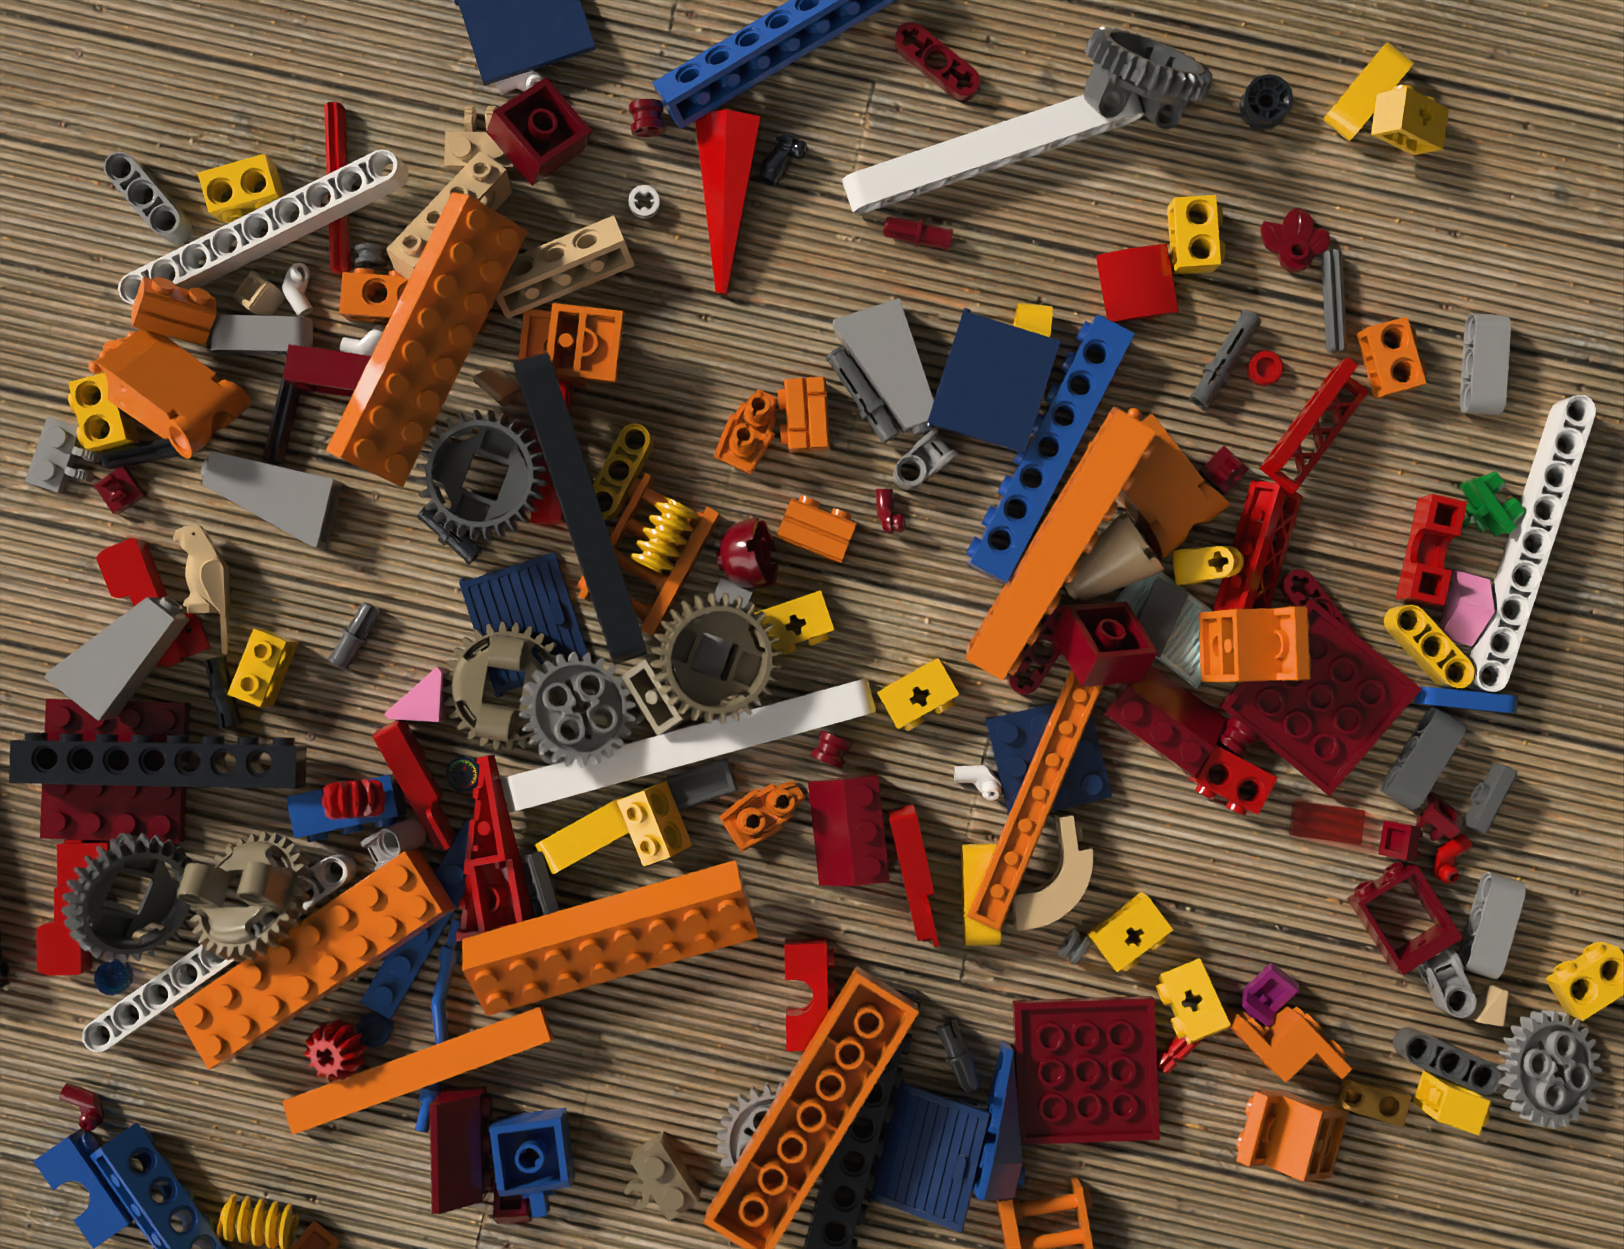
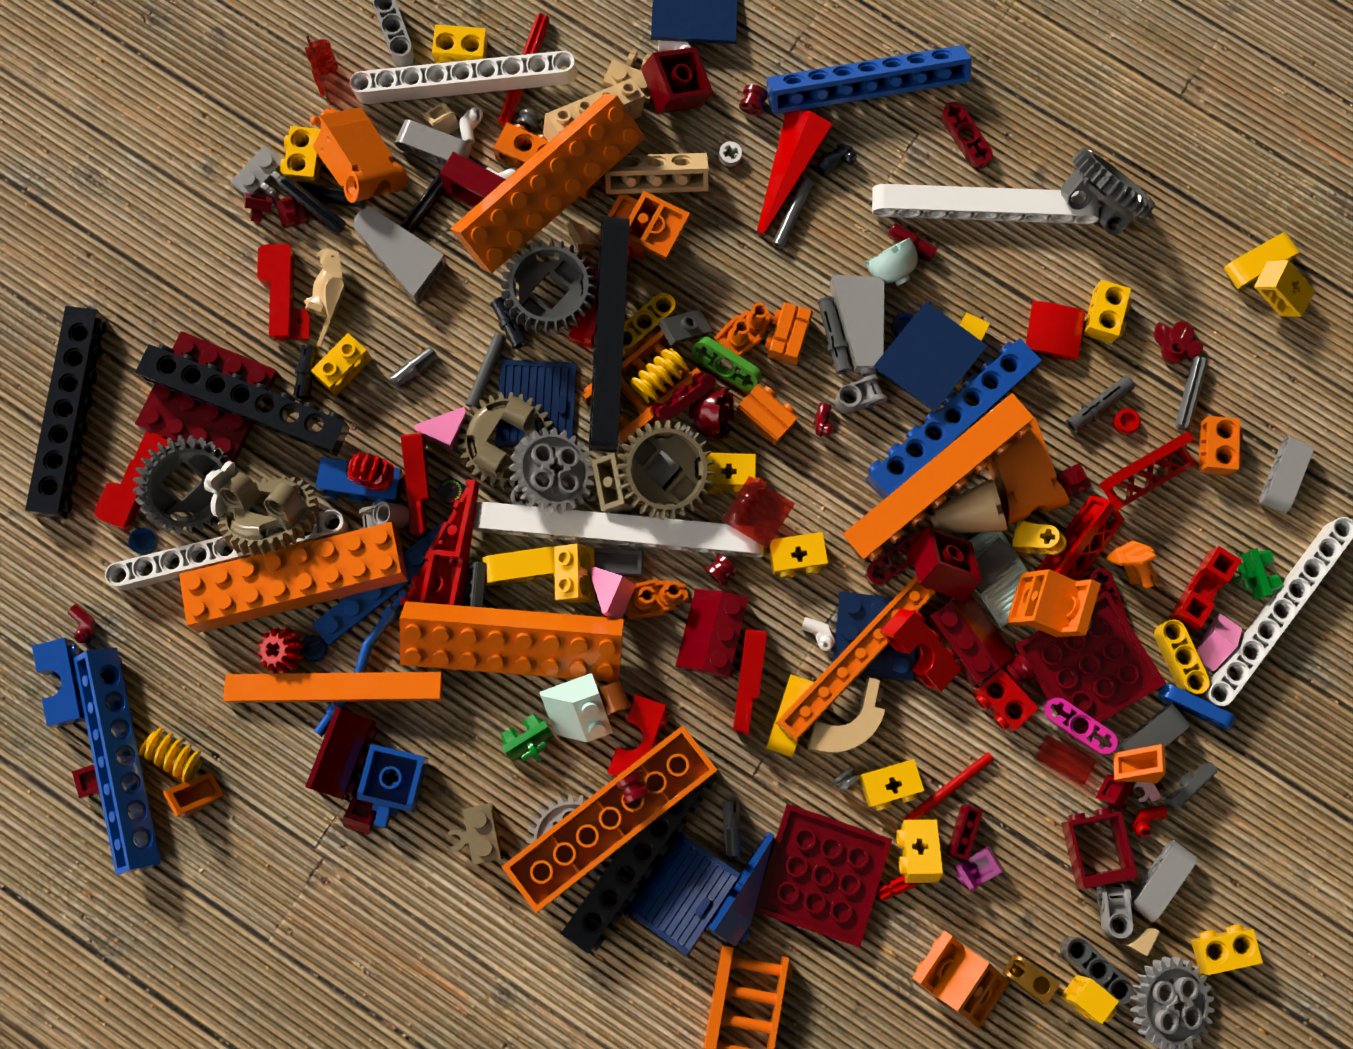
camera: 15 degrees right, 10 degrees down
(71, 499) = (257, 204): none -> dark red tile
(73, 279) = (322, 62): none -> clear red hinge
(119, 658) = (246, 318): light grey slope -> none
(140, 473) = (312, 204): none -> black axle
(167, 885) = (213, 484): none -> white animal
(174, 310) = (382, 105): orange brick -> none
(446, 605) = (486, 370): none -> dark grey piece
(672, 457) = (685, 327): none -> dark grey plate
(677, 1049) = (528, 743): none -> green hips
(705, 554) = (684, 397): none -> dark red plate
(708, 830) = (612, 591): none -> bright pink slope
(723, 989) = (577, 710): none -> light aqua slope
(753, 251) = (793, 213): none -> dark grey piece
(755, 478) = (716, 366): none -> bright green beam
(761, 962) = (614, 698): none -> dark orange piece
(826, 1076) = (633, 788): none -> dark red wheel
(850, 663) = (758, 511): none -> clear red hinge
(905, 272) = (894, 263): none -> light aqua cylinder
(940, 346) = (900, 322): none -> tile
(1132, 768) = (936, 663): none -> red arch
(1200, 910) = (950, 787): none -> red bar
(1237, 957) = (964, 832): none -> dark red piece
(1262, 89) = (1191, 234): black wheel -> none
(1288, 1042) = (980, 905): orange bracket -> none
(1338, 548) = (1137, 563): none -> orange connector
(1356, 795) = (1101, 732): none -> dark pink beam
(1423, 805) = (1140, 764): none -> orange slope

